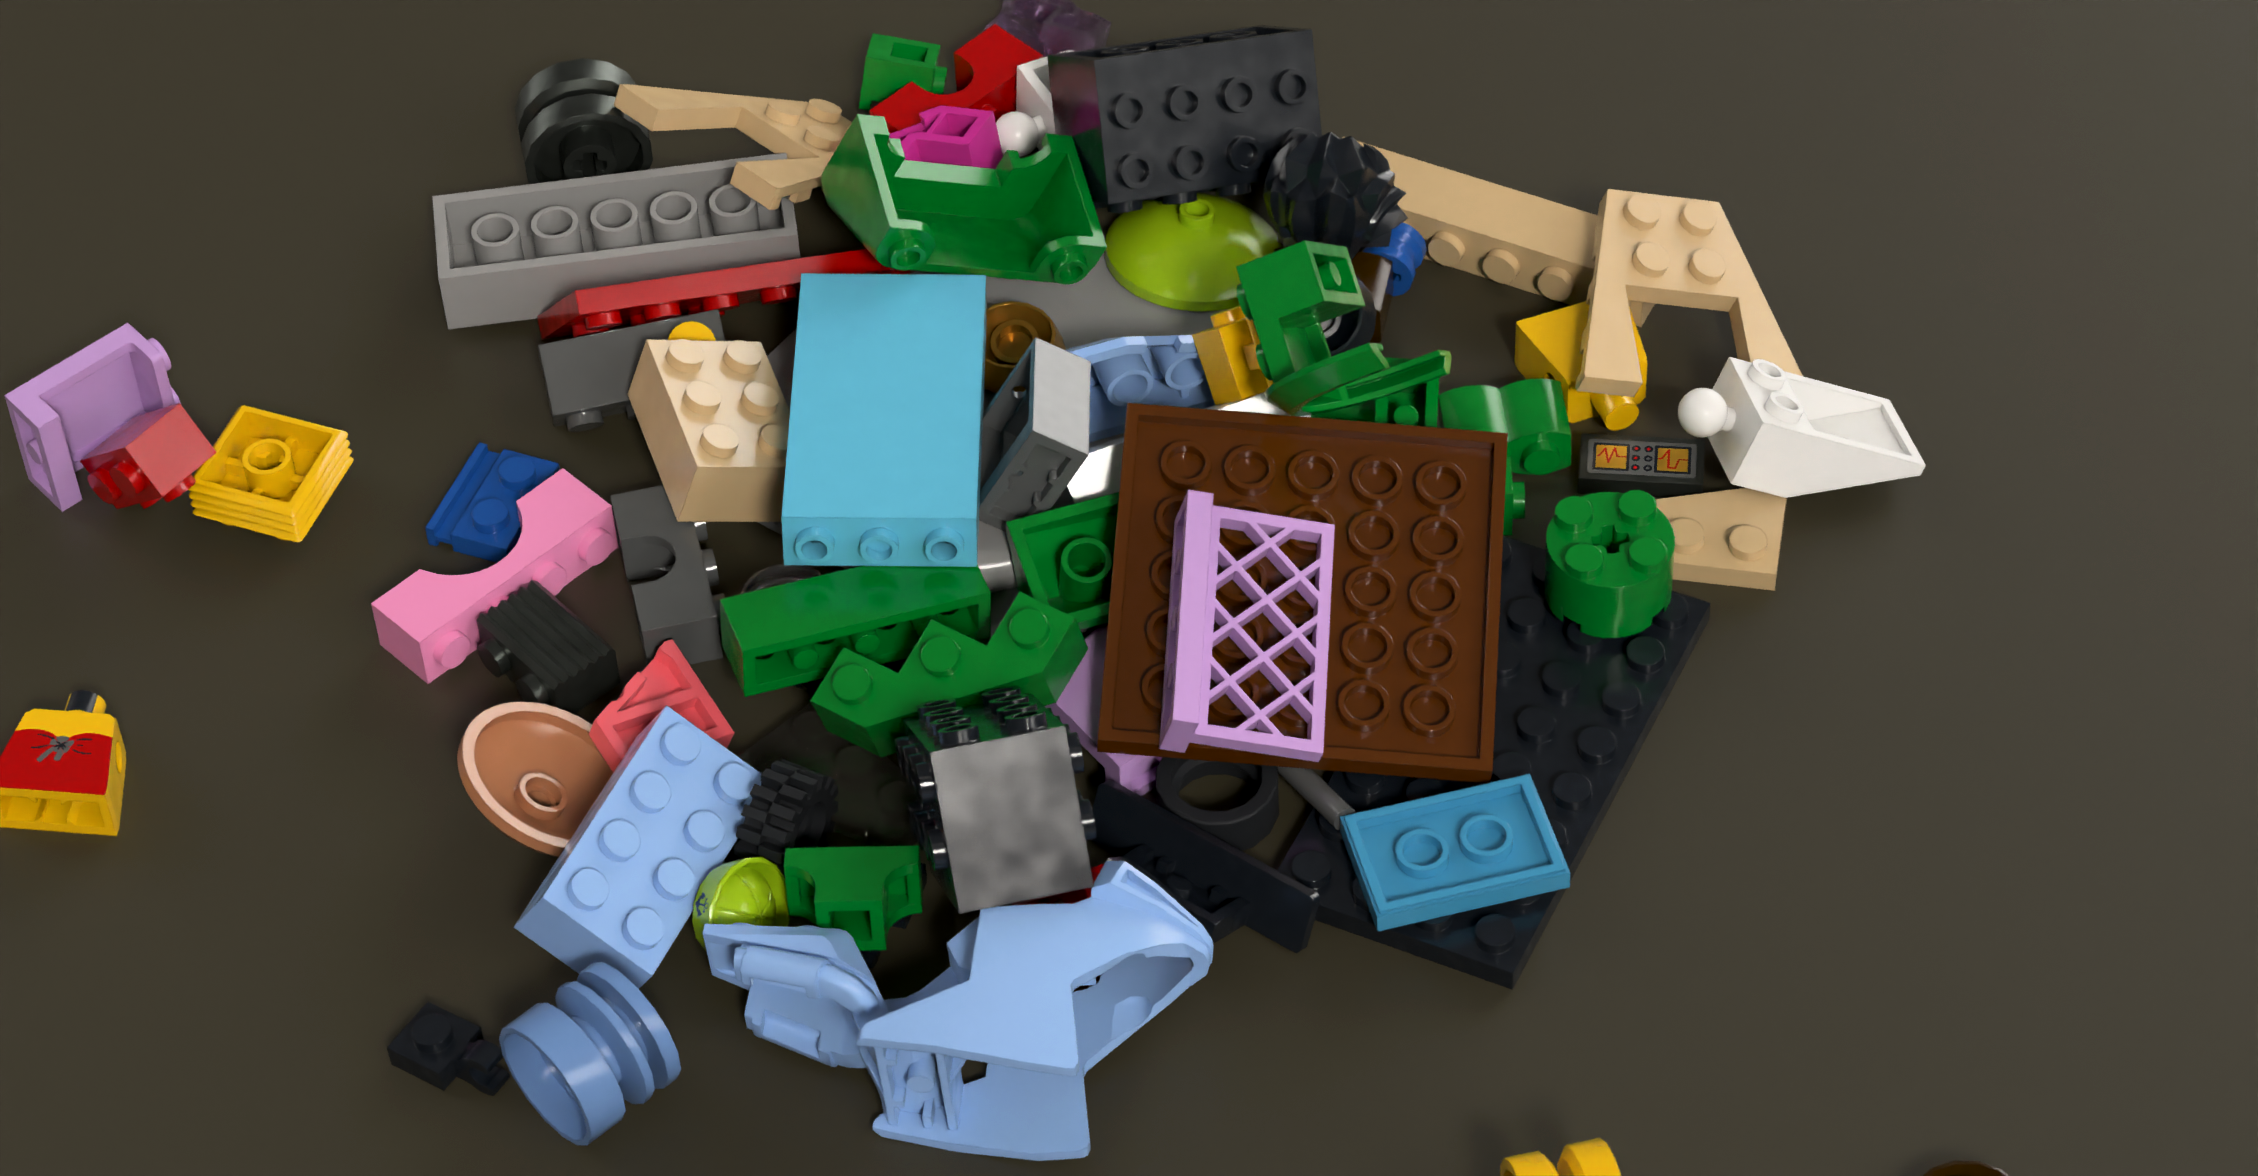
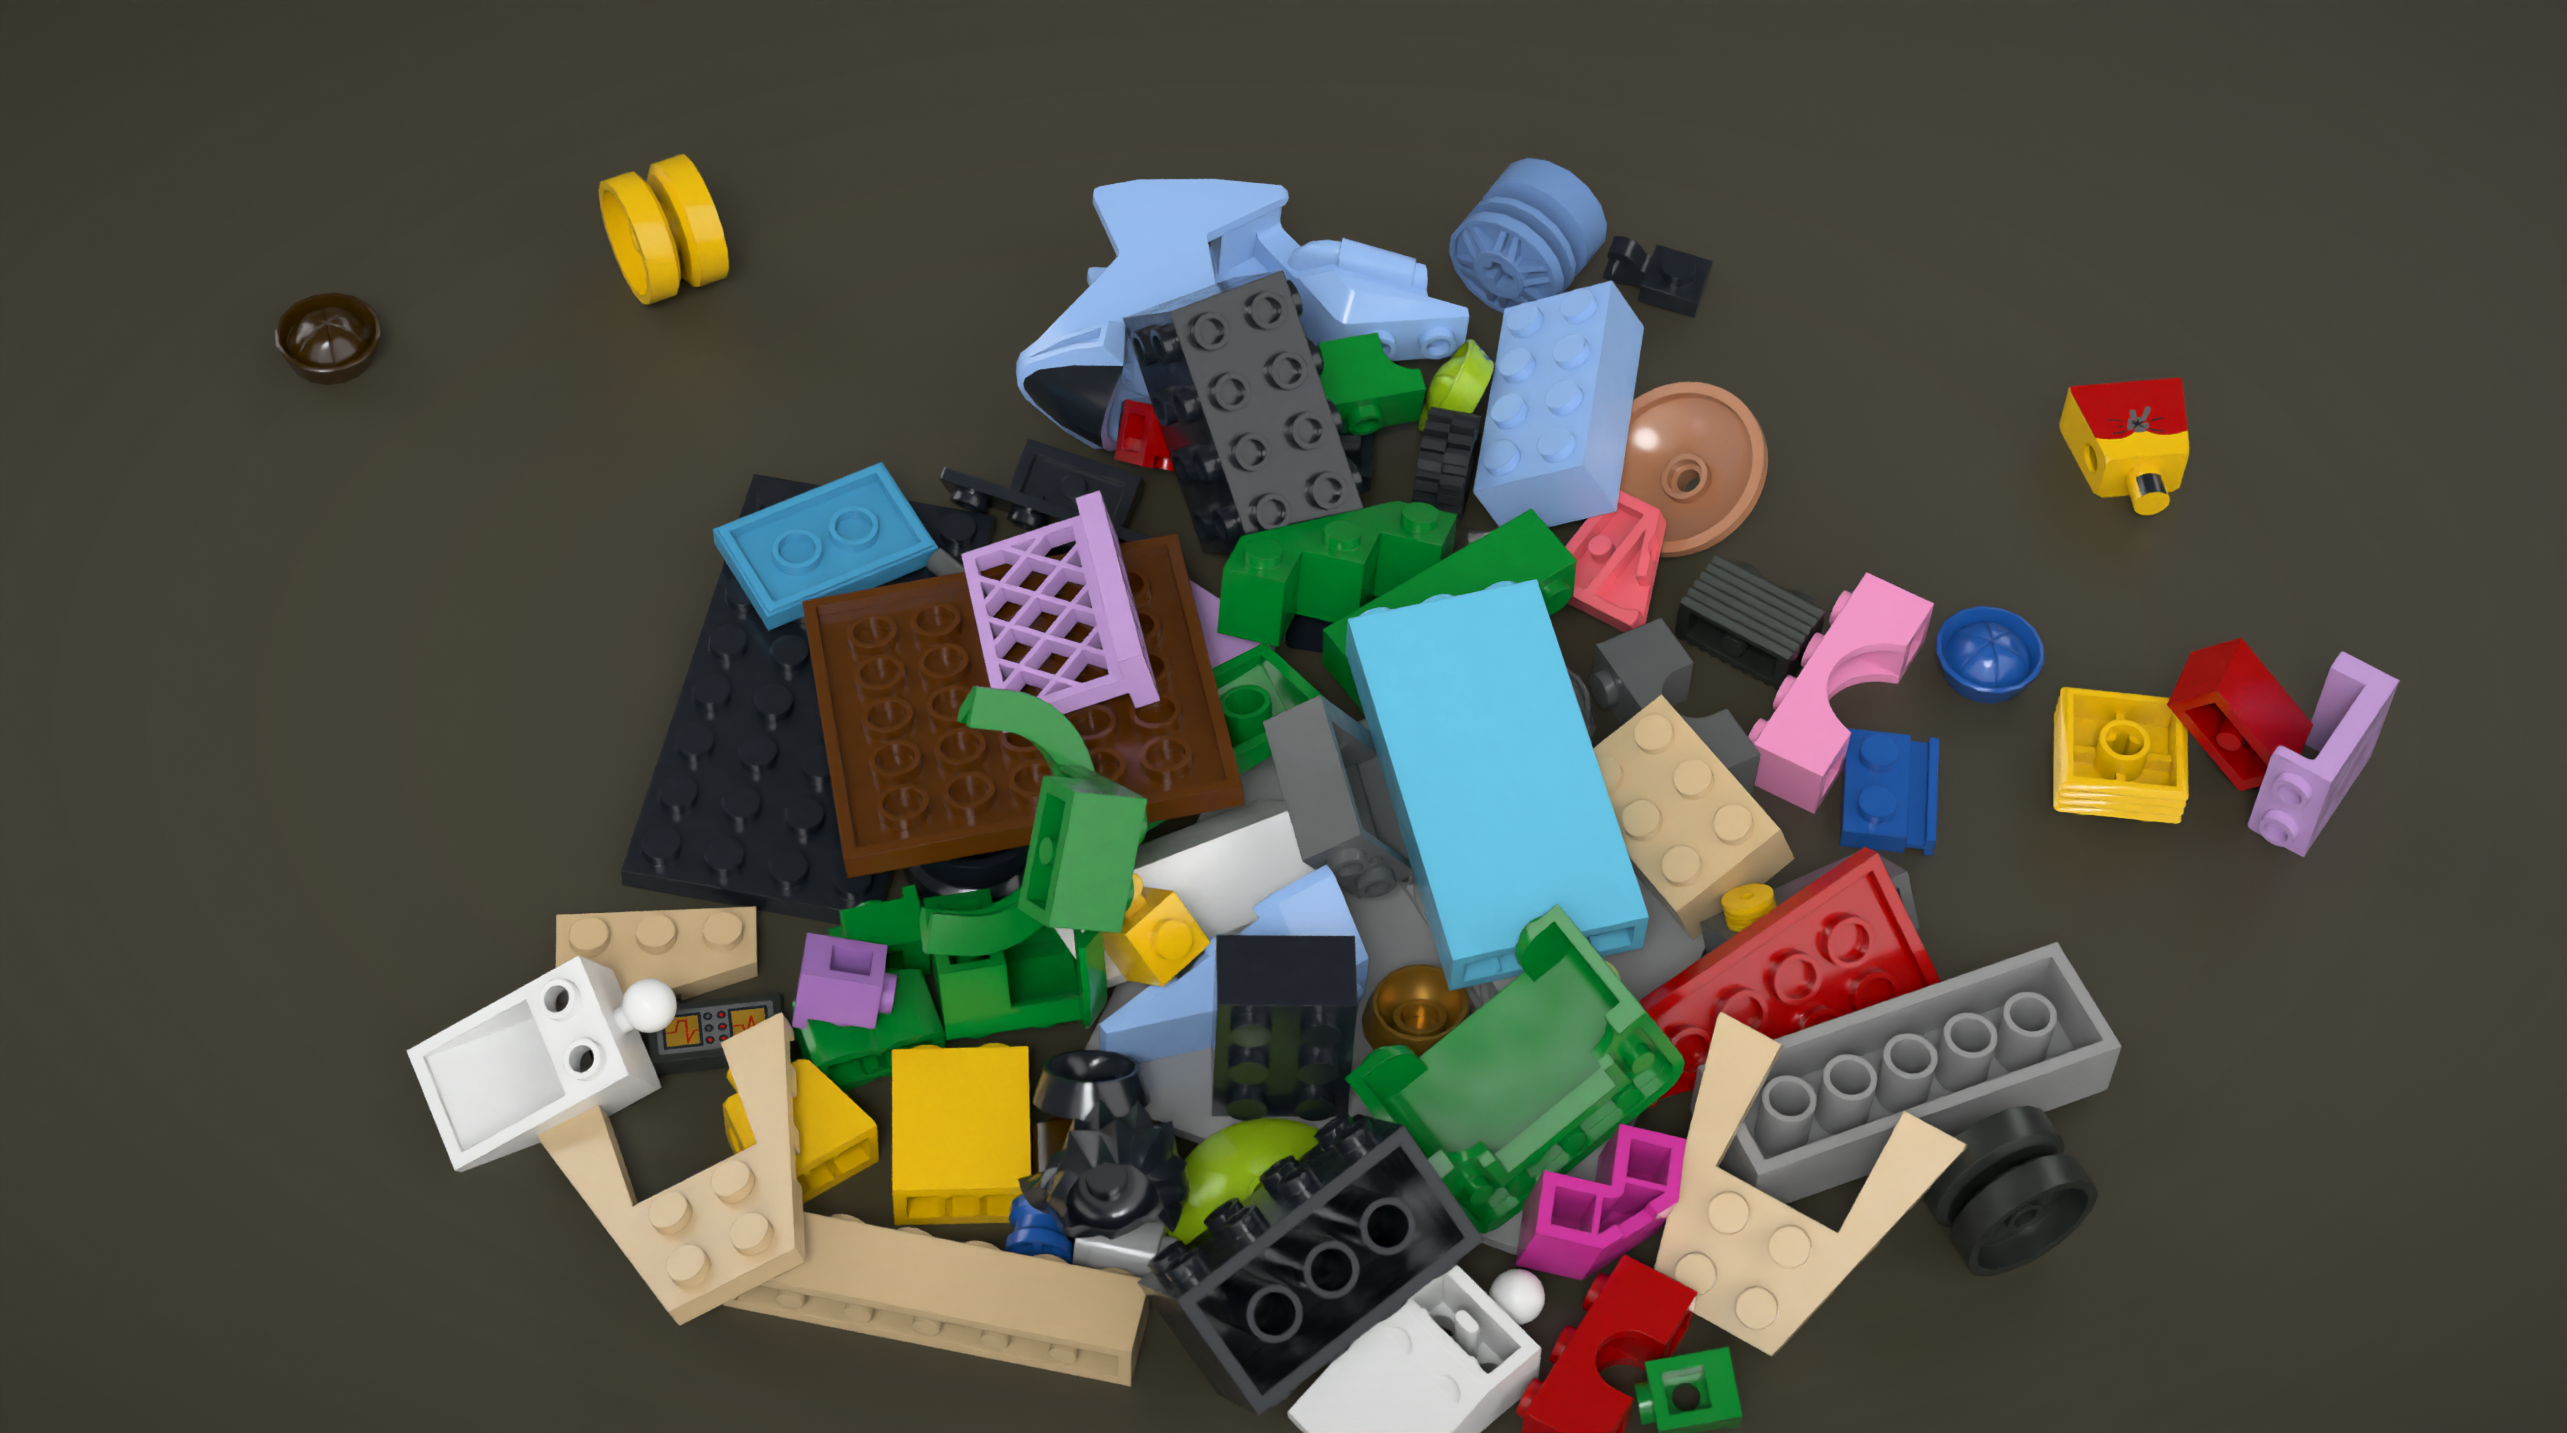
camera: 160 degrees right, 5 degrees up
(331, 596) = (1988, 653): none -> blue hat
(1146, 261) = (1283, 1026): none -> black brick
(1448, 310) = (959, 1133): none -> yellow brick
(1523, 375) = (843, 982): none -> medium lavender brick
(1609, 562) = (723, 824): green brick -> none

